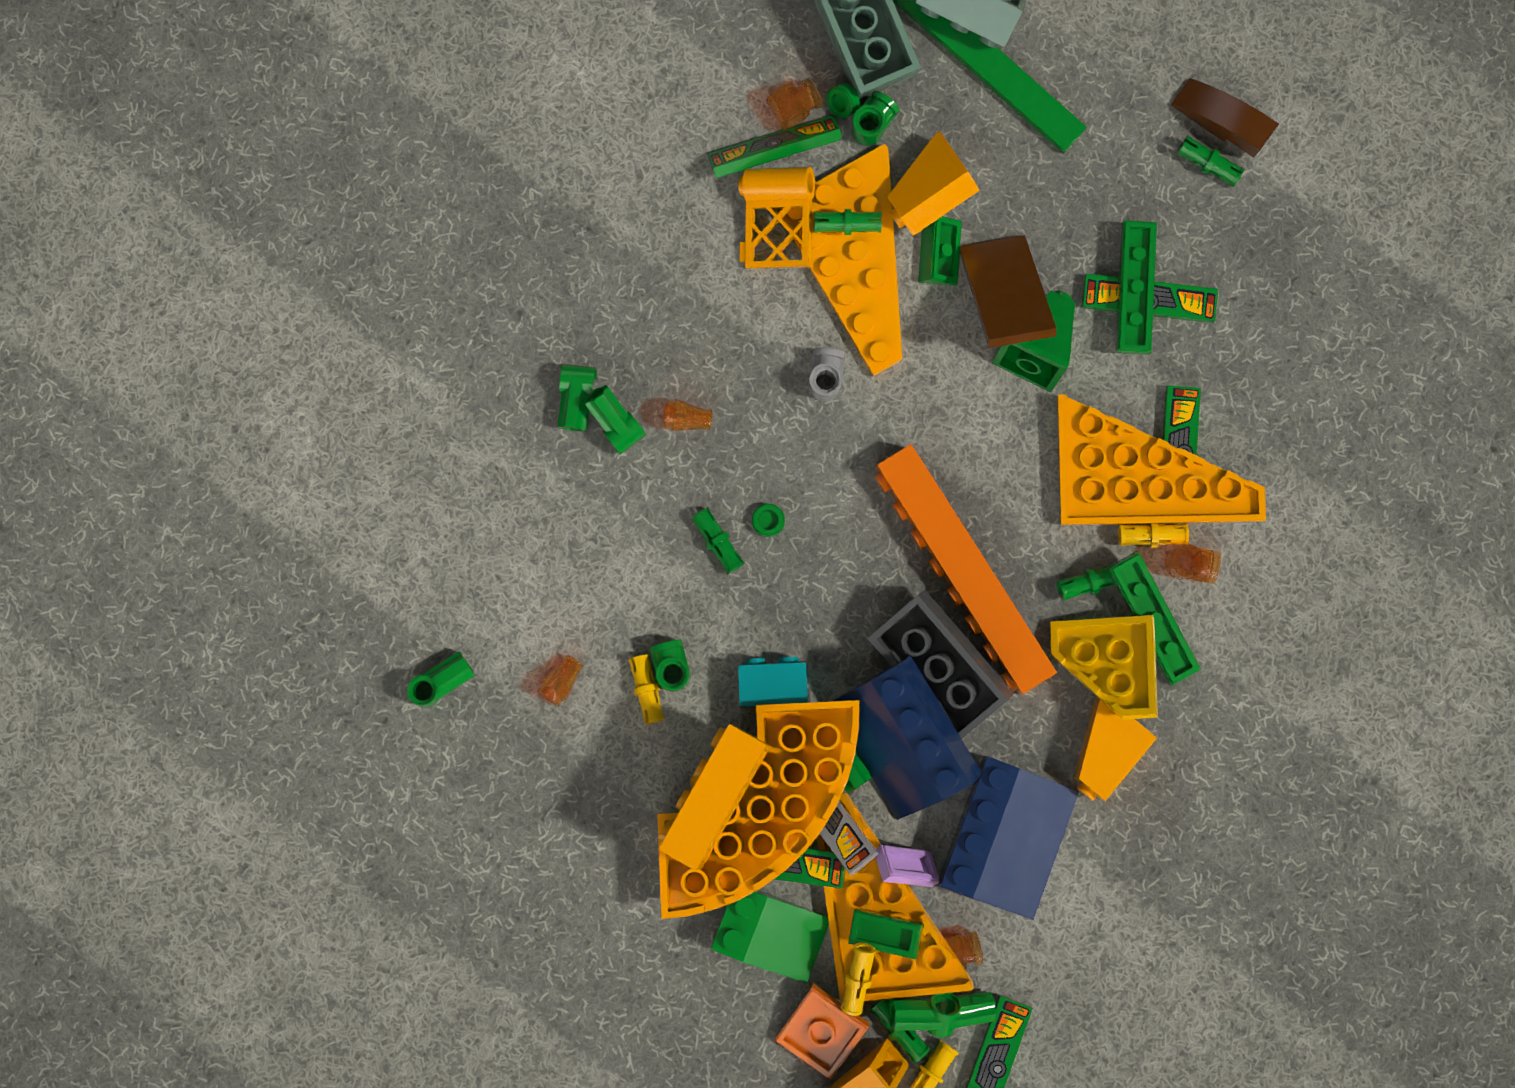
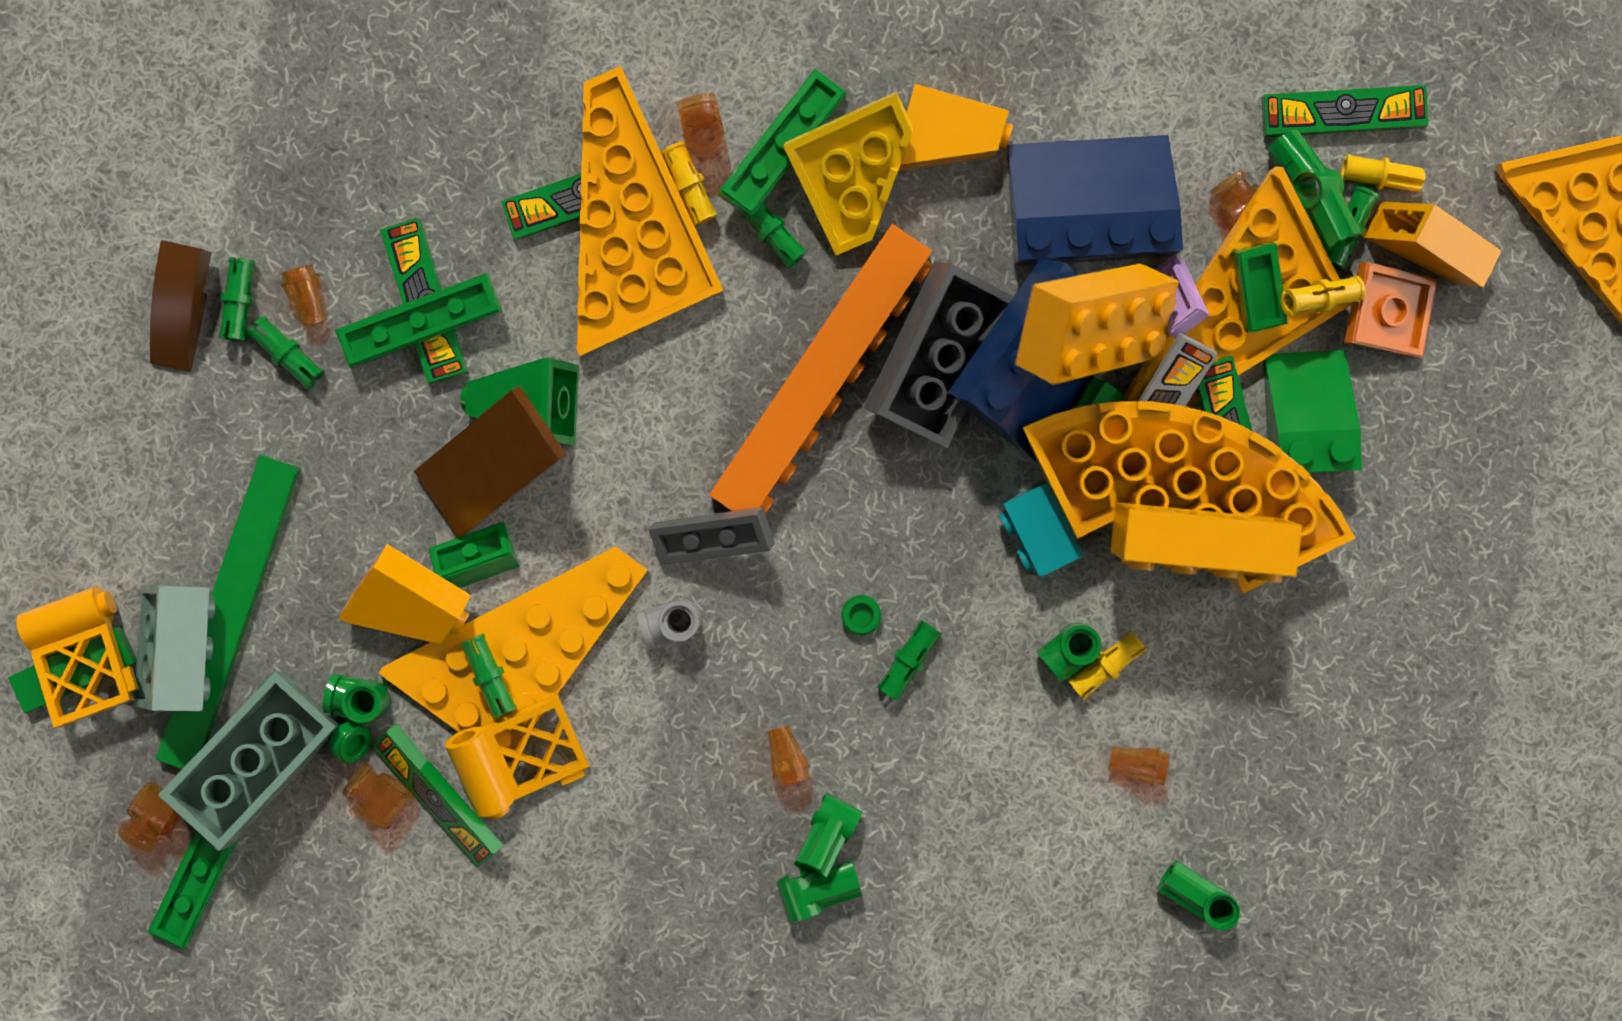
camera: 120 degrees left, 5 degrees up
(878, 432) = (712, 536): none -> dark grey plate
(915, 788) = (1096, 322): none -> light orange brick
(1155, 179) = (285, 352): none -> green pin
(1193, 212) = (304, 293): none -> clear orange cone

